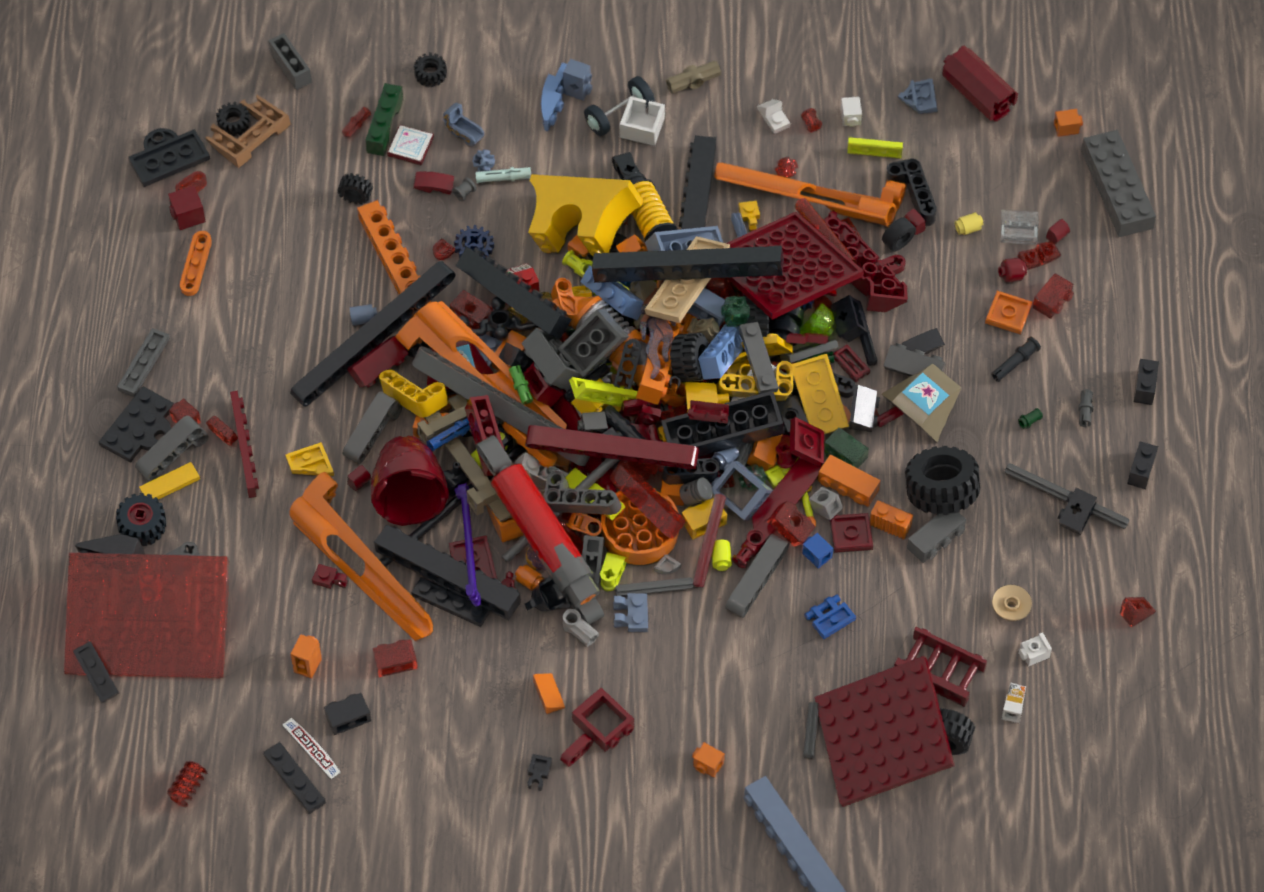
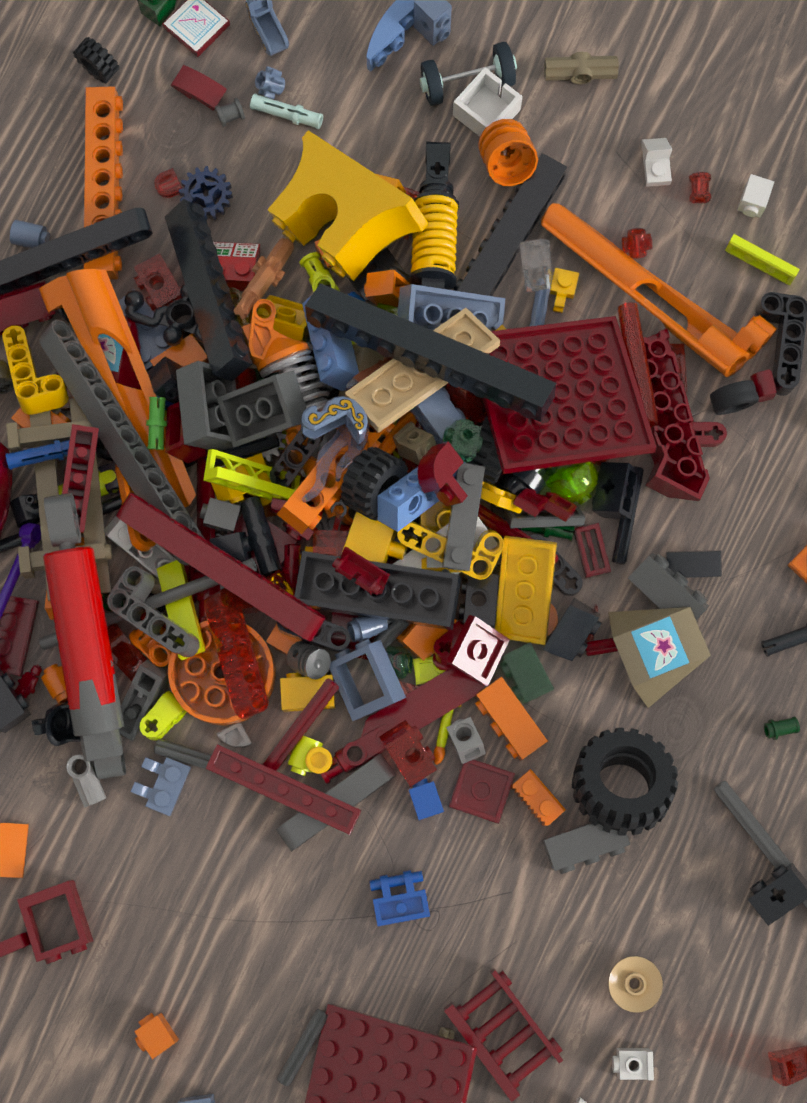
camera: 25 degrees right, 20 degrees up
(546, 272) = (267, 272): none -> nougat piece
(647, 320) = (335, 414): none -> sand blue animal
(672, 142) = (507, 152): none -> orange wheel
(719, 574) = (283, 789): none -> dark red plate
(725, 203) = (536, 264): none -> clear slope
(730, 332) = (436, 474): none -> dark red brick
(733, 548) = (318, 760): none -> yellow tile

